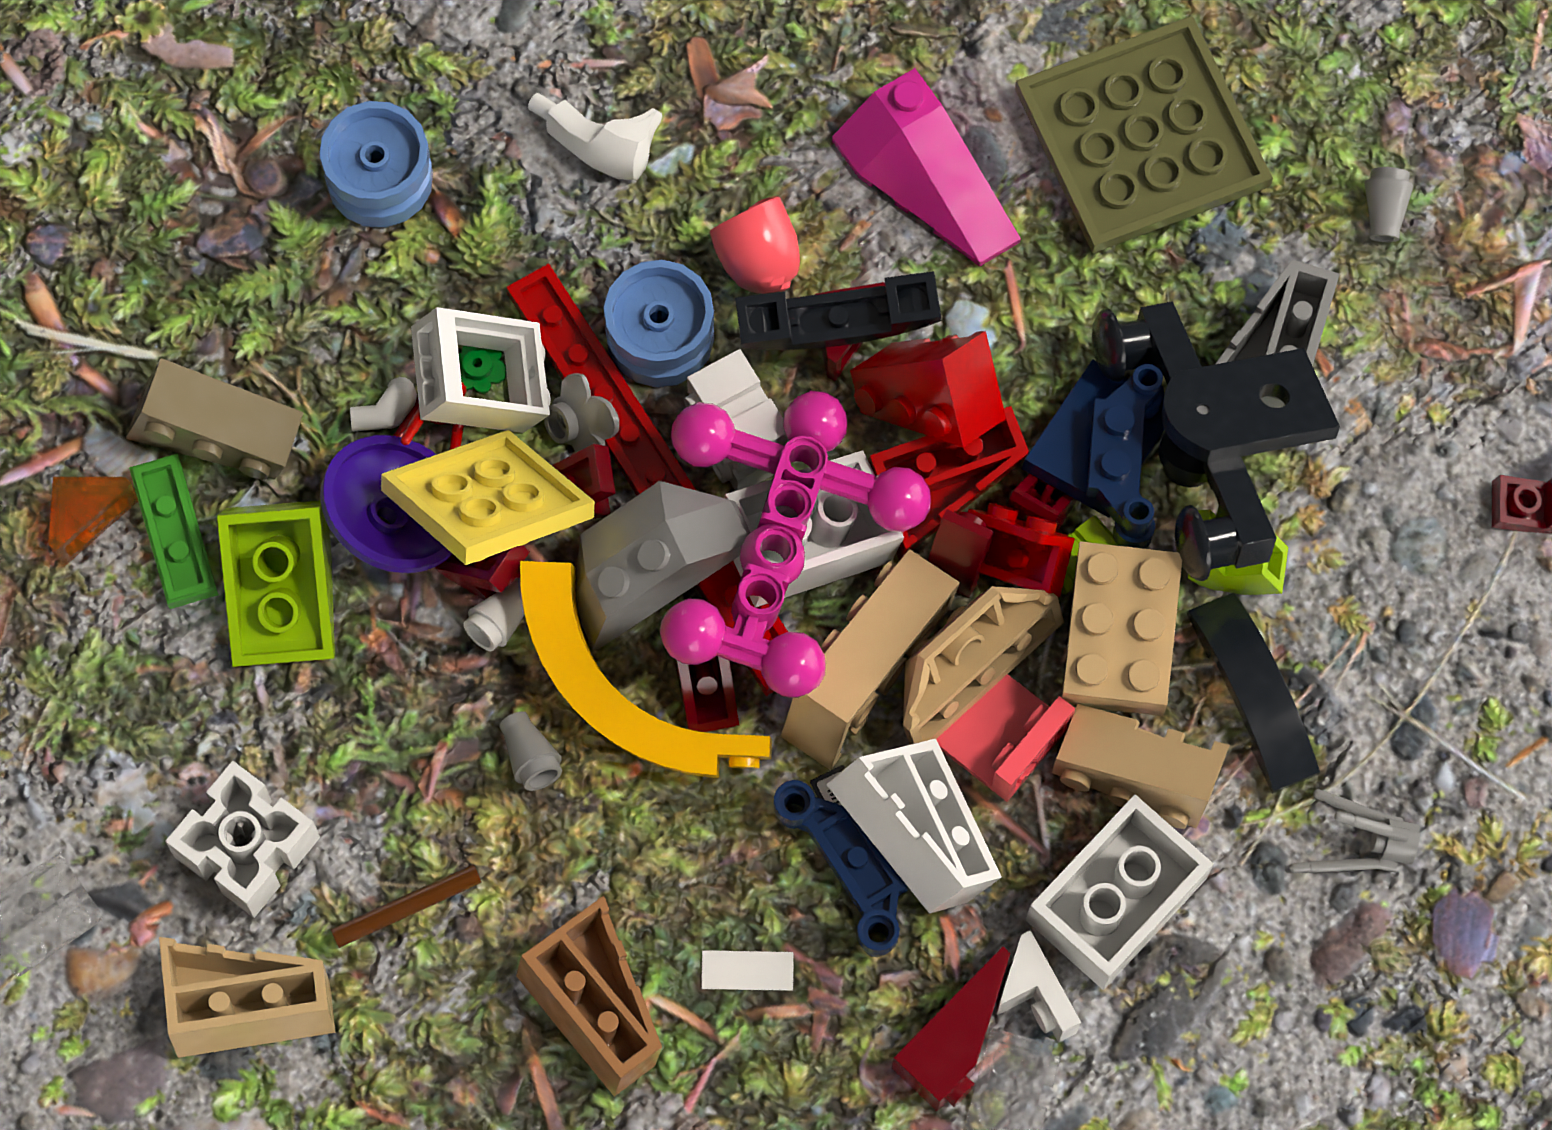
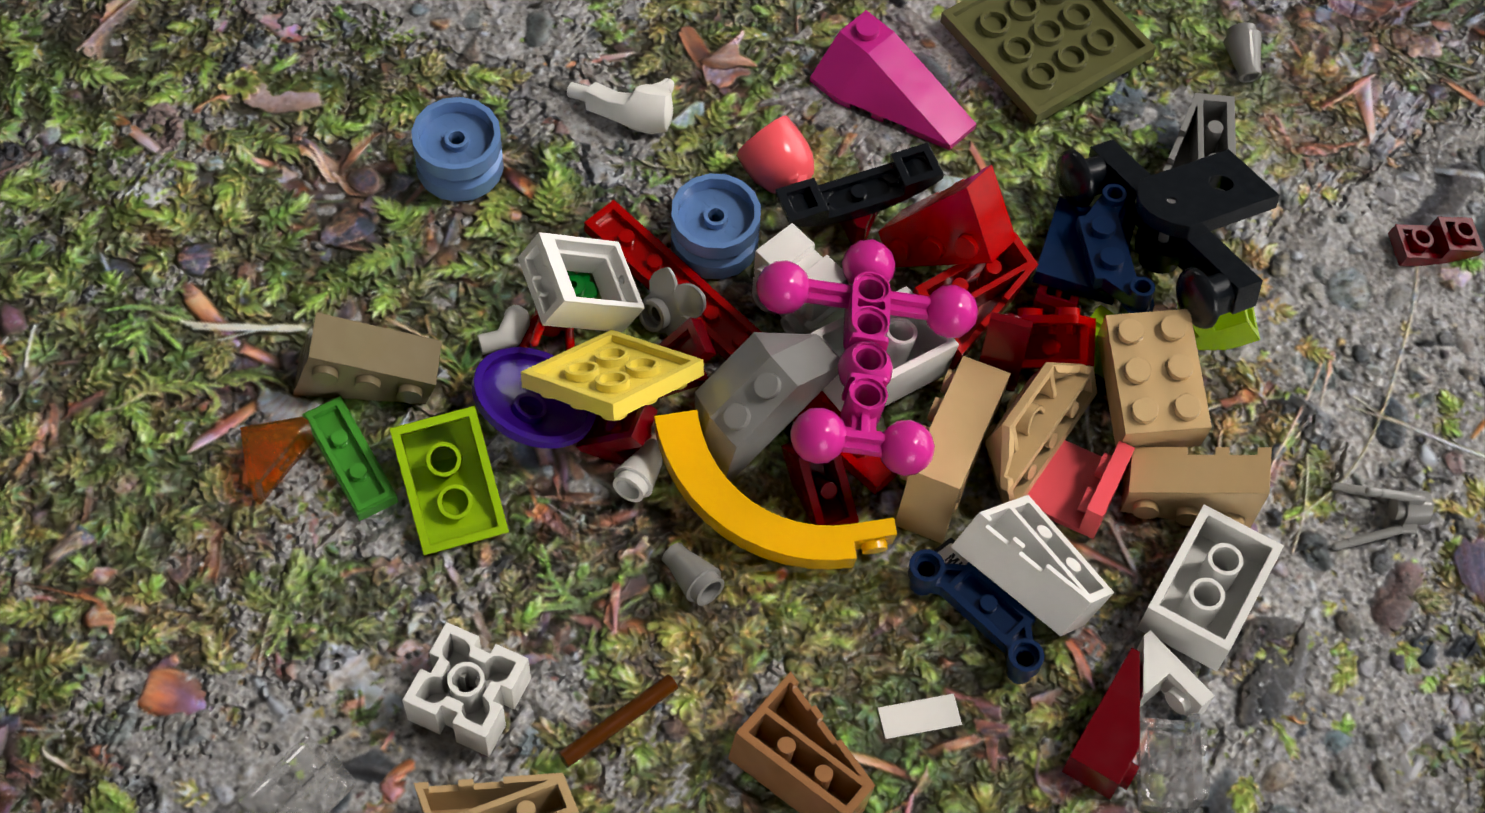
camera: 15 degrees left, 10 degrees down
(1257, 691) = (1269, 416): black slope -> none

